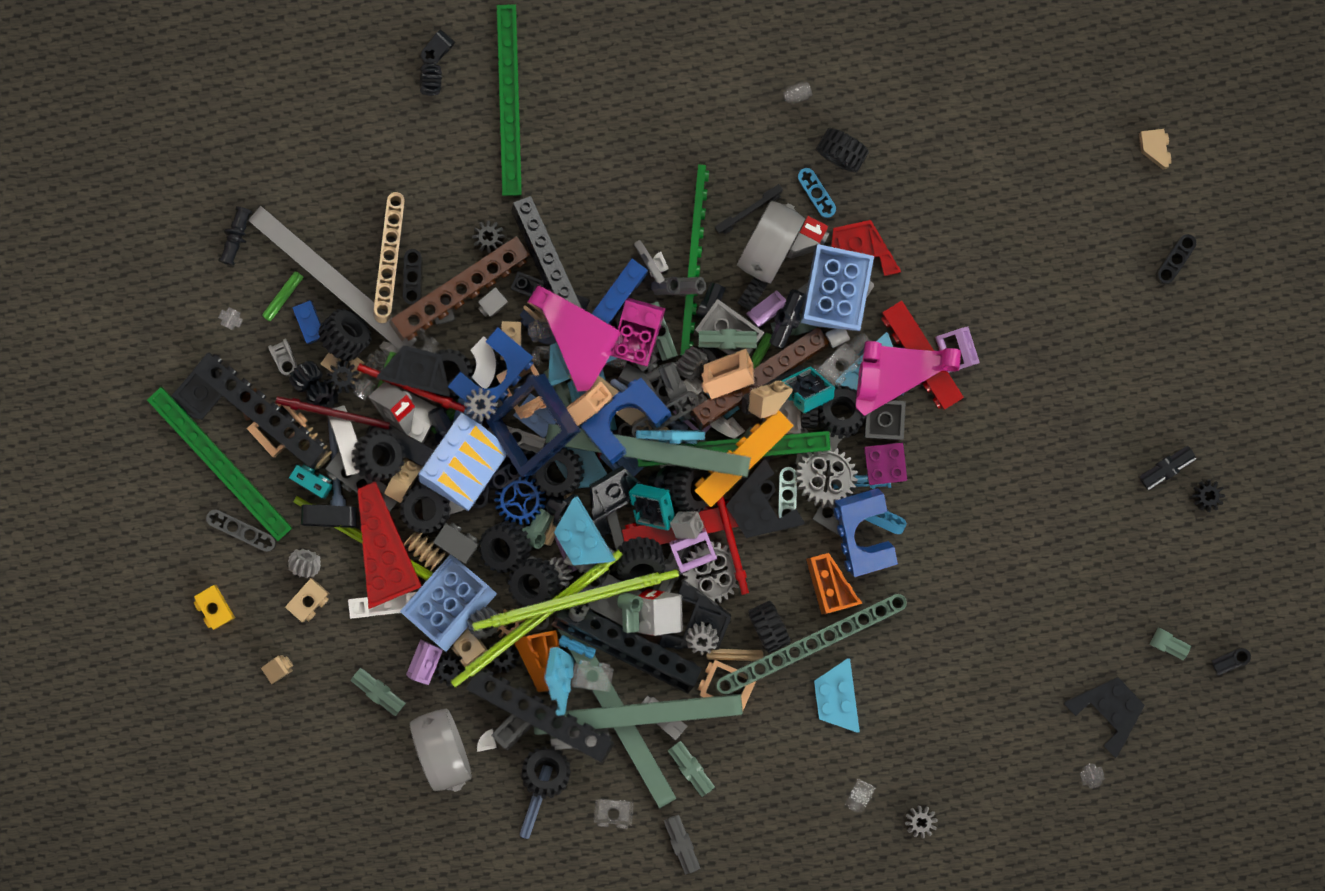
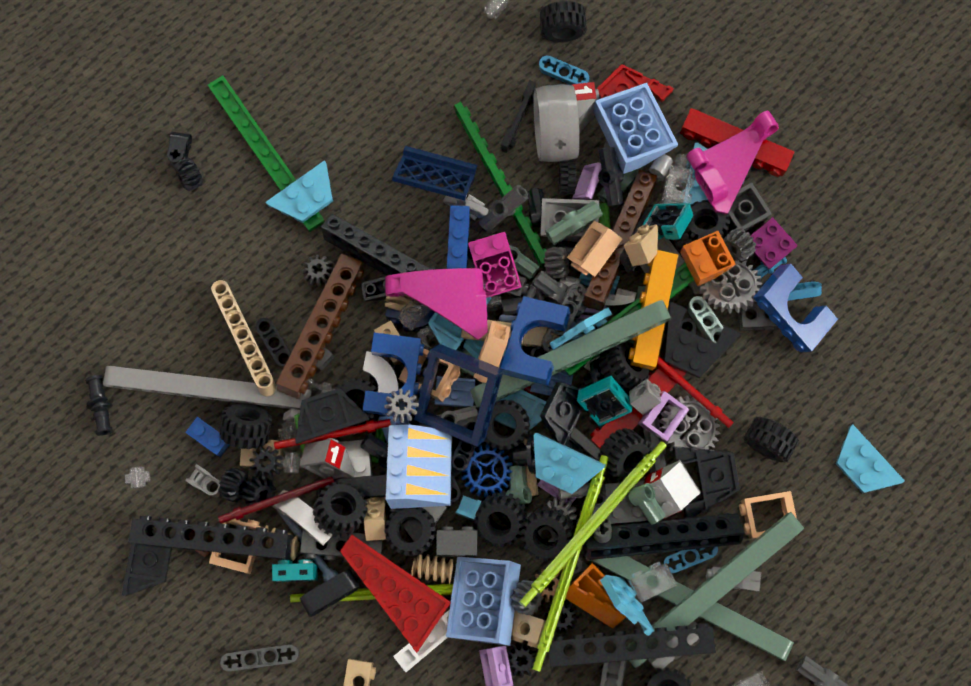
camera: 35 degrees left, 10 degrees down
(219, 463) = (203, 610): green plate -> none
(282, 296) = (172, 430): bright green axle -> none
(304, 563) = (334, 649): light grey gear -> none
(485, 519) = (468, 508): none -> medium azure panel
(492, 303) = (356, 322): light grey brick -> none
(518, 163) = (305, 195): none -> medium azure wing
(577, 647) = (620, 565): dark azure axle -> none
(625, 678) = (678, 567): none -> dark azure beam
(649, 209) = (436, 166): none -> dark blue fence
(691, 768) = (788, 607): sand green piece -> none
(698, 643) = (725, 493): light grey gear -> none
(735, 654) = (756, 484): tan axle -> none
(818, 443) = (707, 258): none -> orange slope
(818, 638) = (812, 440): sand green beam -> none
(830, 585) = (794, 372): orange wedge -> none
(856, 448) = (740, 244): none -> dark grey gear
(860, 796) = (945, 535): clear bracket -> none
(965, 344) = (758, 107): lavender tile -> none

